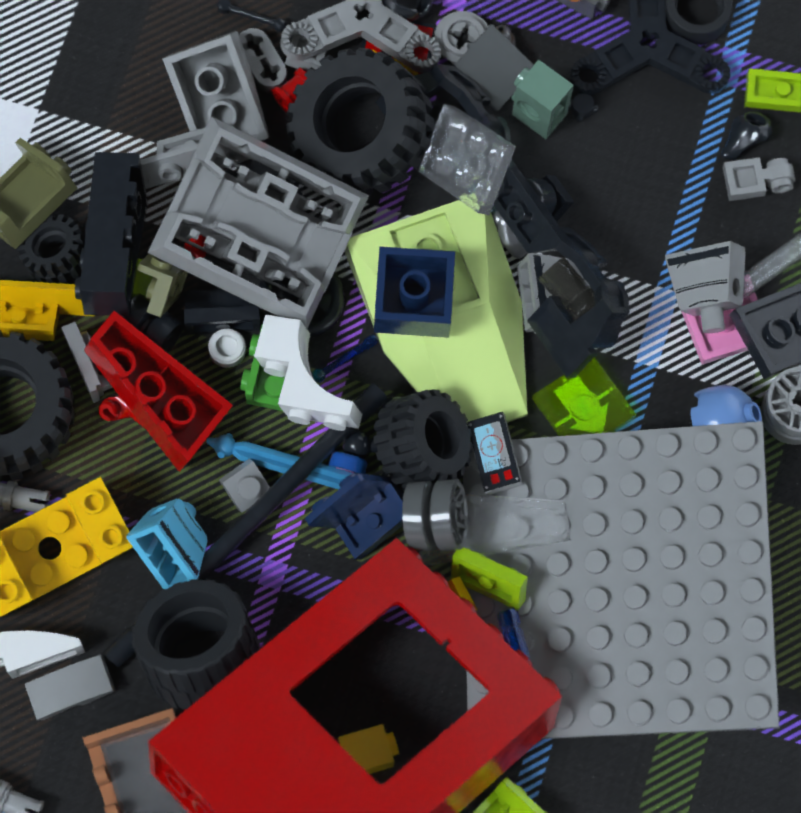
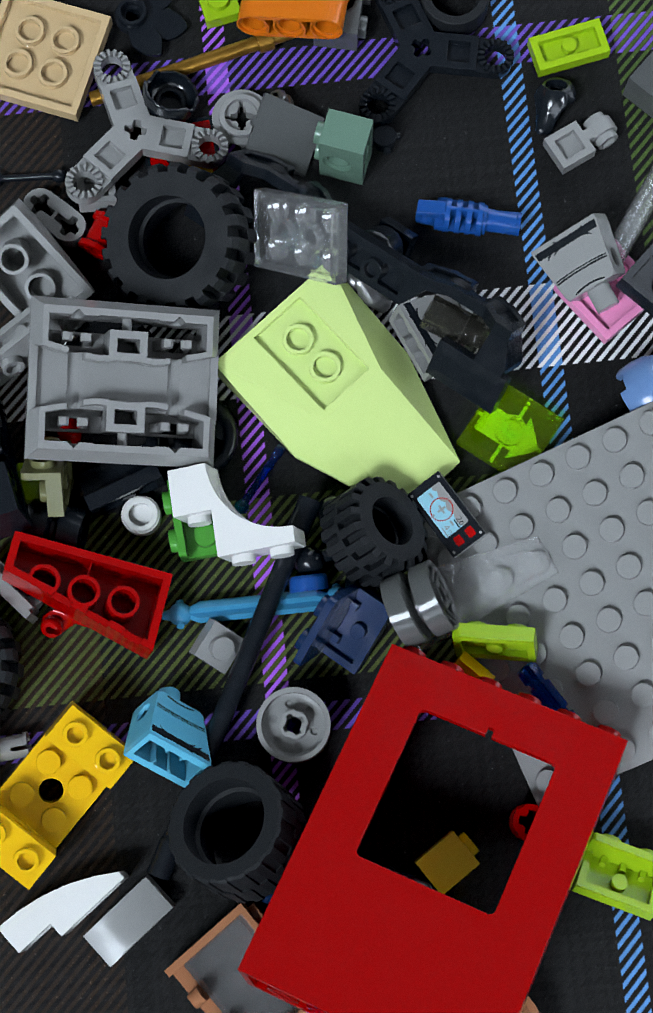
camera: 15 degrees left, 5 degrees up
(265, 571) = (275, 716): none -> light grey wheel
(414, 292) = (306, 389): dark blue brick -> none
(625, 204) = (466, 217): none -> blue hinge

